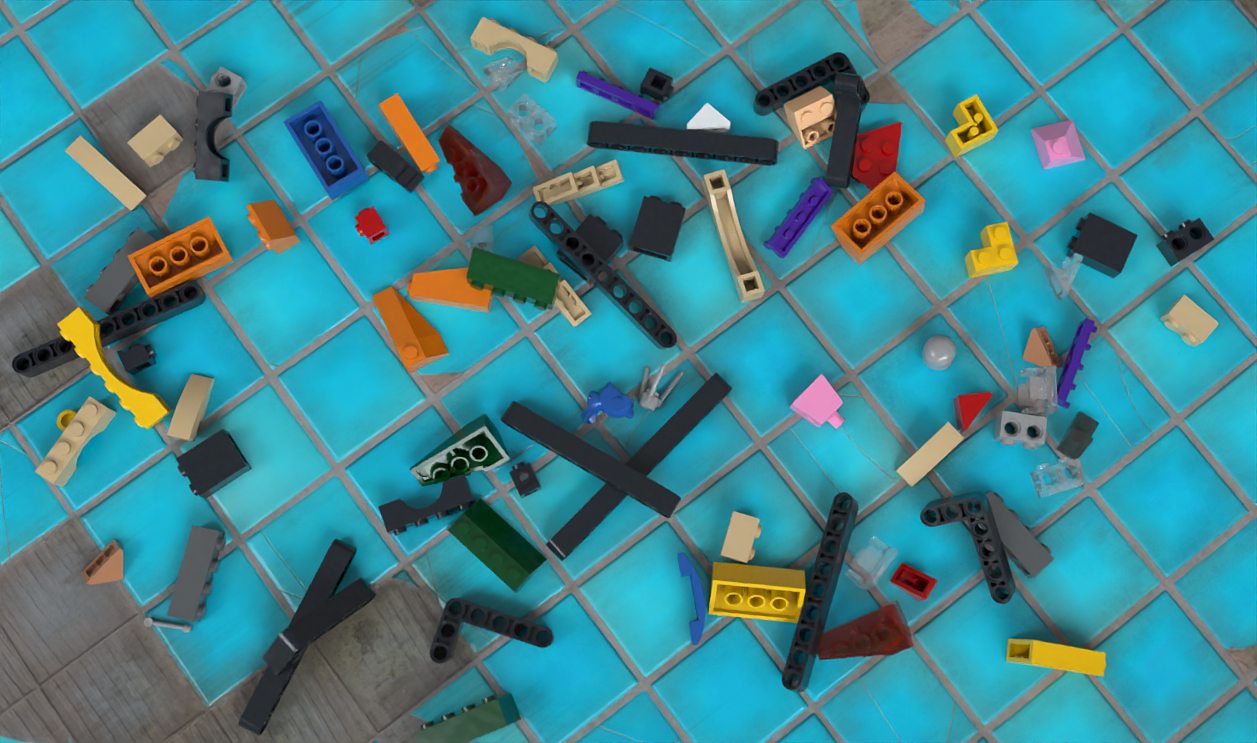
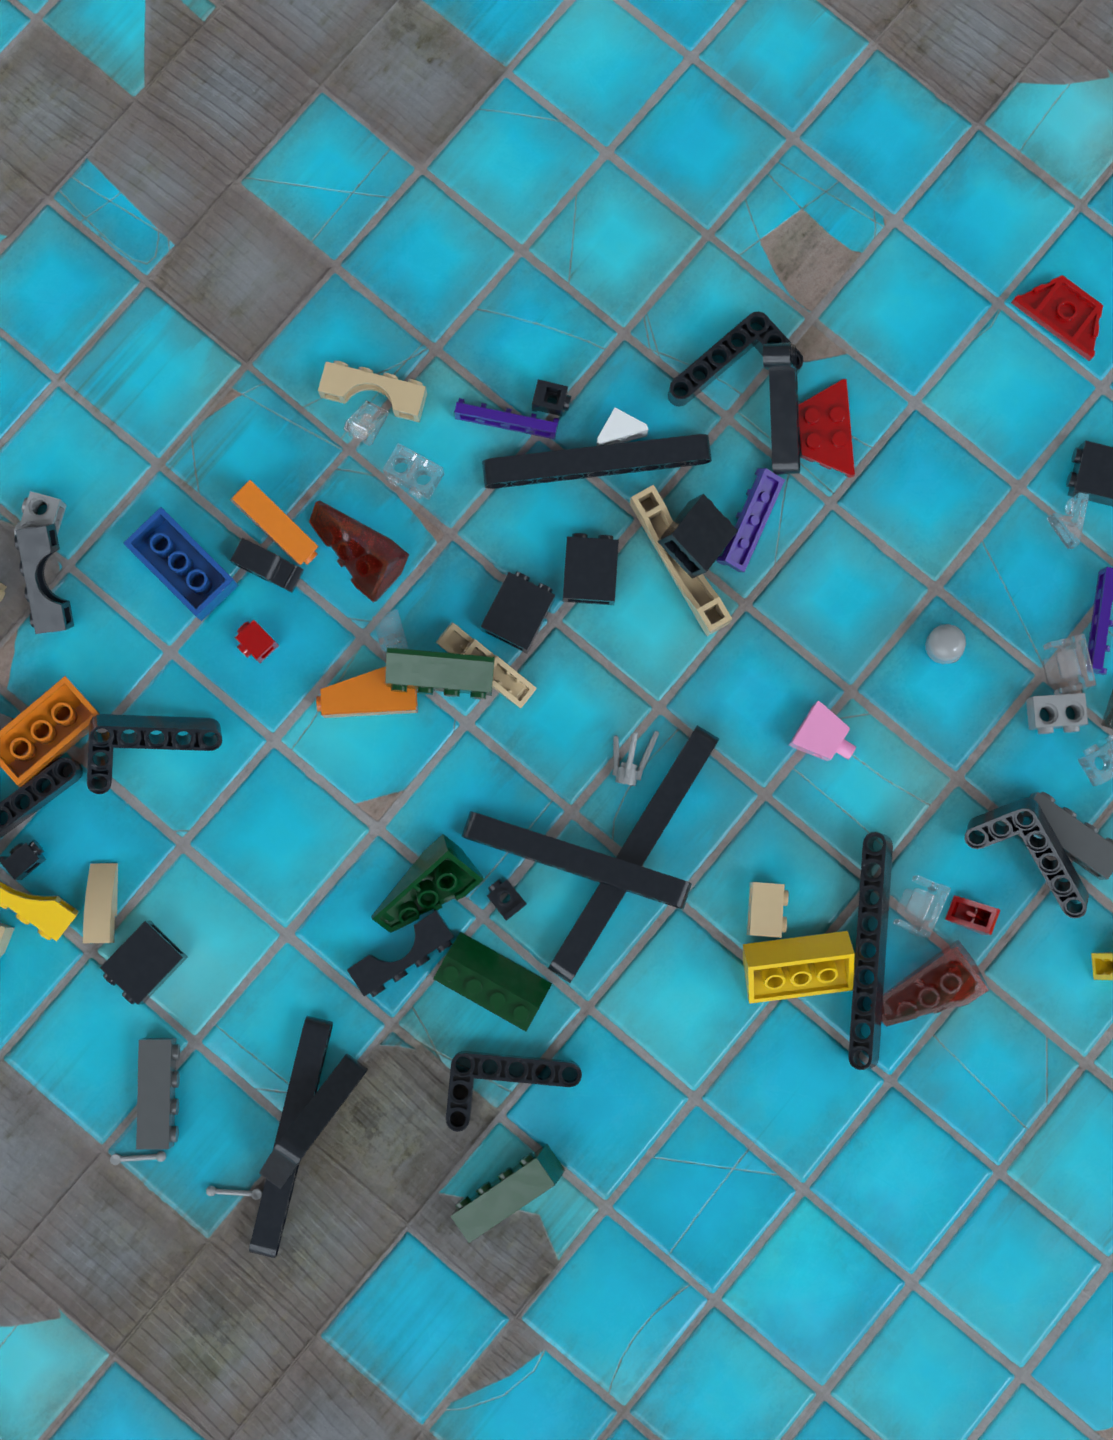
camera: 15 degrees left, 5 degrees up
(106, 566) = (50, 1107): nougat slope -> none
(221, 666) = (256, 1193): none -> light grey hinge
(259, 281) = (143, 739): none -> black beam
(272, 225) = (143, 669): orange slope -> none
(412, 335) = (334, 759): orange wedge -> none
(579, 184) = (486, 537): tan slope -> none
(591, 273) = (554, 644): black beam -> none
(610, 402) = (580, 786): blue animal -> none
(687, 569) = (741, 1021): blue slope -> none
(751, 218) = (697, 536): none -> black brick
(812, 116) = (740, 395): light nougat slope -> none
(878, 217) = (843, 501): orange slope -> none
(929, 454) = (960, 764): tan slope -> none
(968, 407) = (994, 700): red slope -> none
(974, 129) = (932, 365): yellow brick -> none
(997, 252) = (989, 511): yellow brick -> none
(1041, 349) = (1062, 615): nougat slope -> none
(1057, 144) = (1031, 364): bright pink slope -> none
(1093, 108) = (1065, 313): none -> red wing

